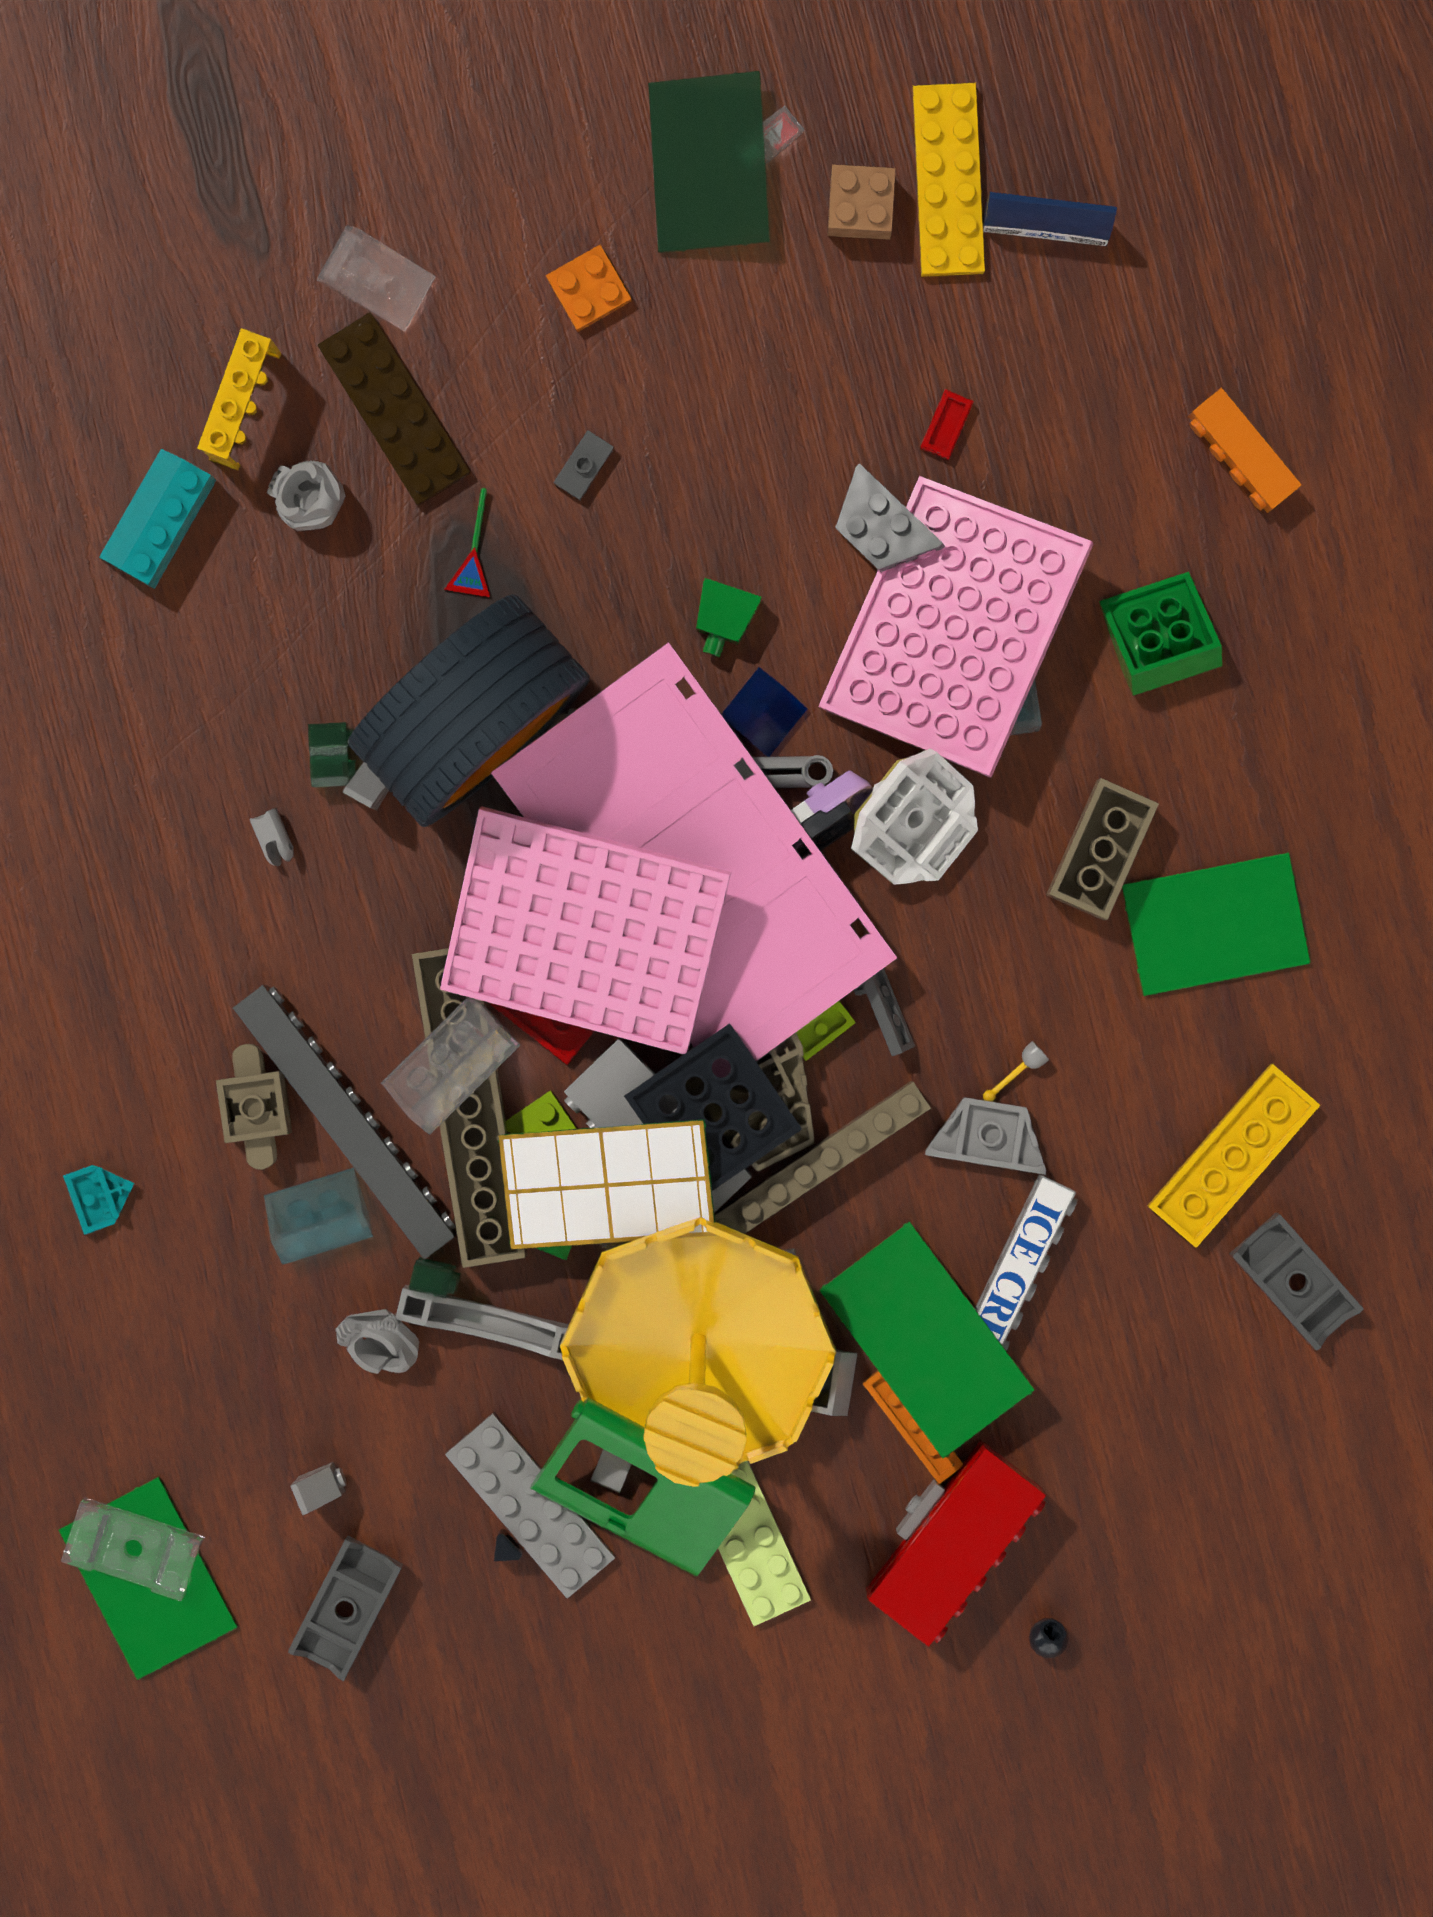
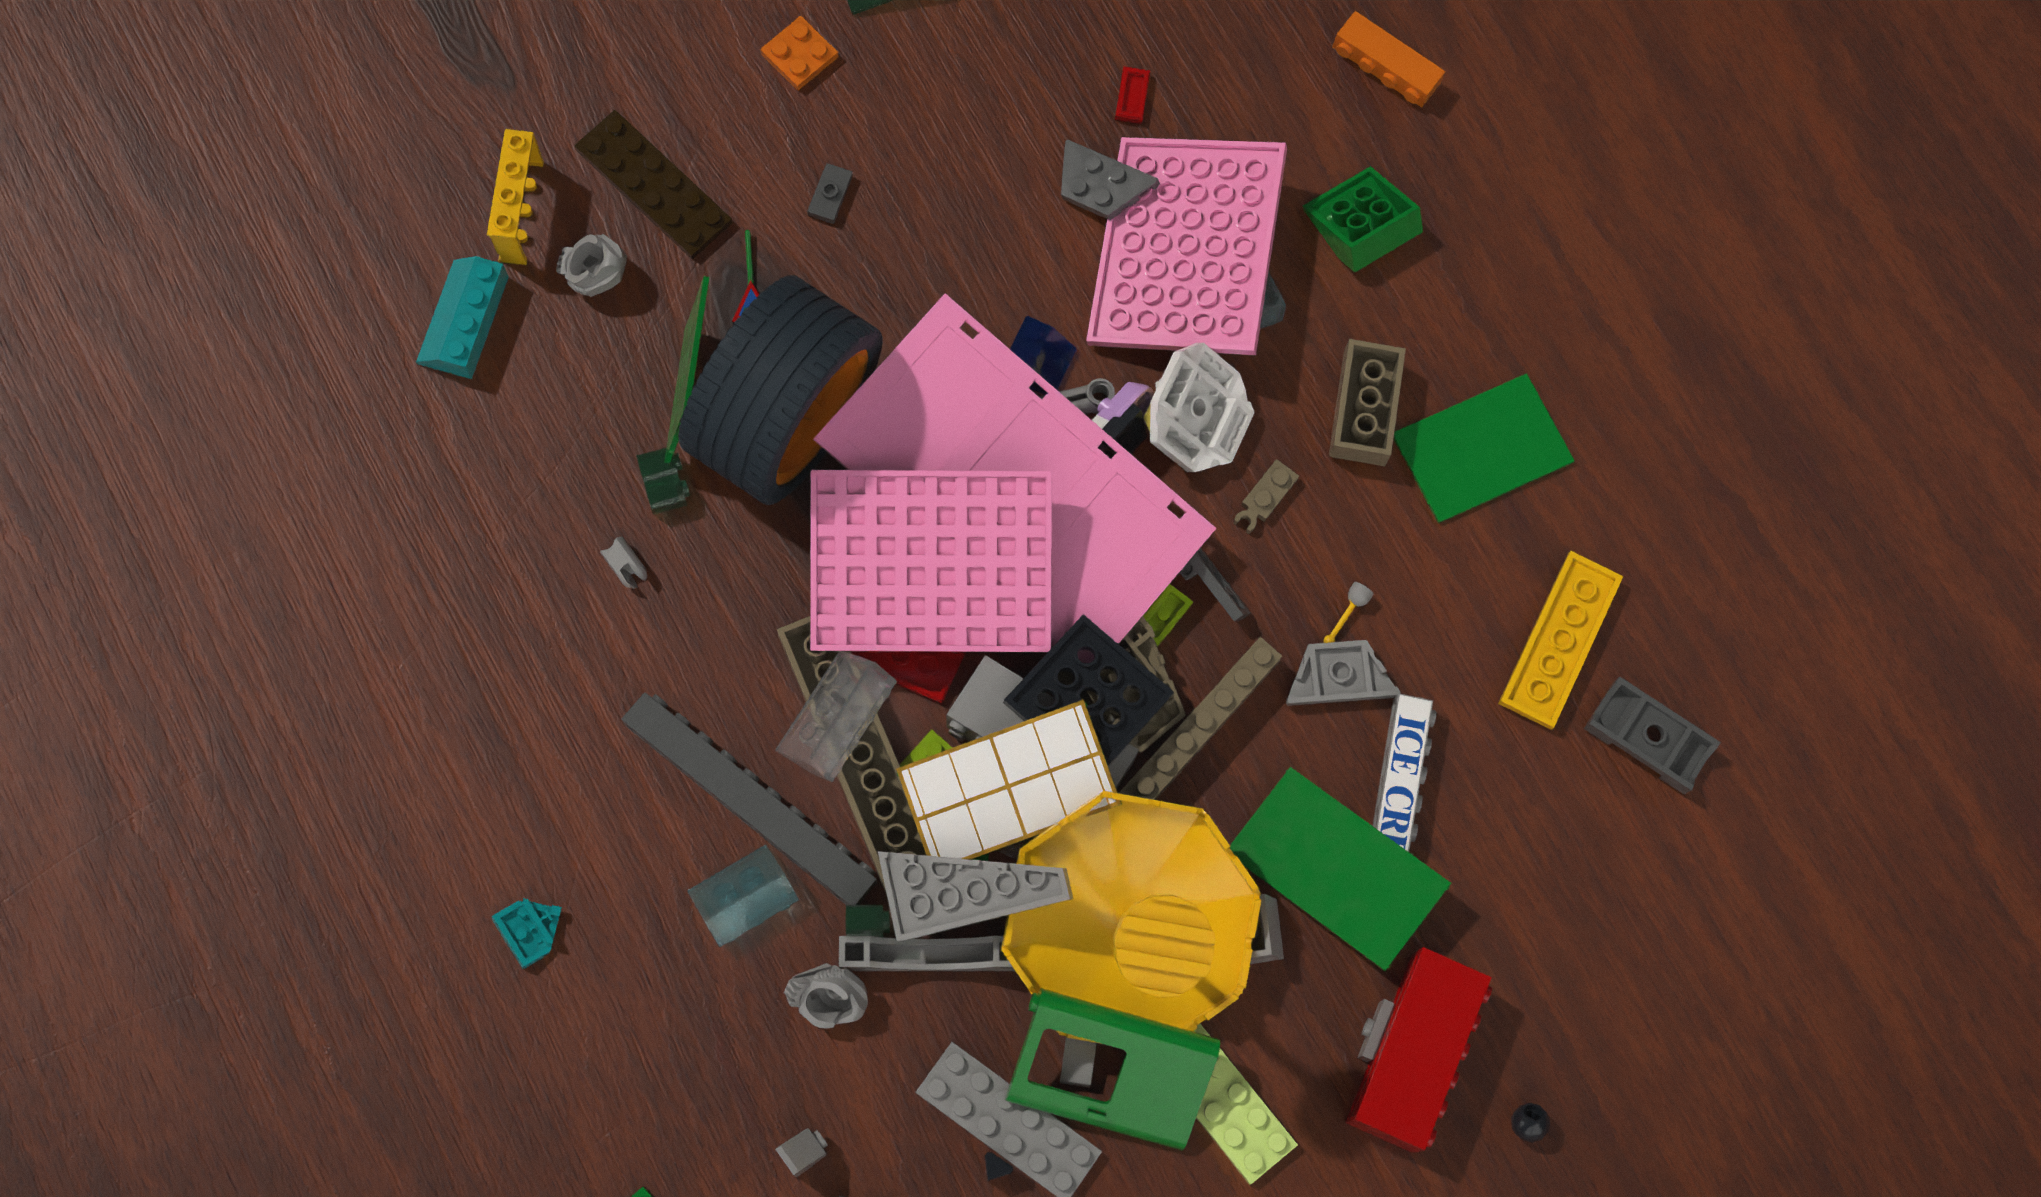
camera: 25 degrees left, 15 degrees down
(254, 1106) = (660, 806): dark tan brick -> none
(366, 788) = (703, 497): light grey slope -> none
(375, 277) = (613, 80): clear slope -> none
(378, 652) = (687, 367): none -> green piece
(522, 1280) = (950, 893): none -> light grey wing
(724, 615) = (984, 284): green torso -> none
(939, 1467) = (1360, 968): orange plate -> none
(968, 921) = (1267, 494): none -> dark tan plate

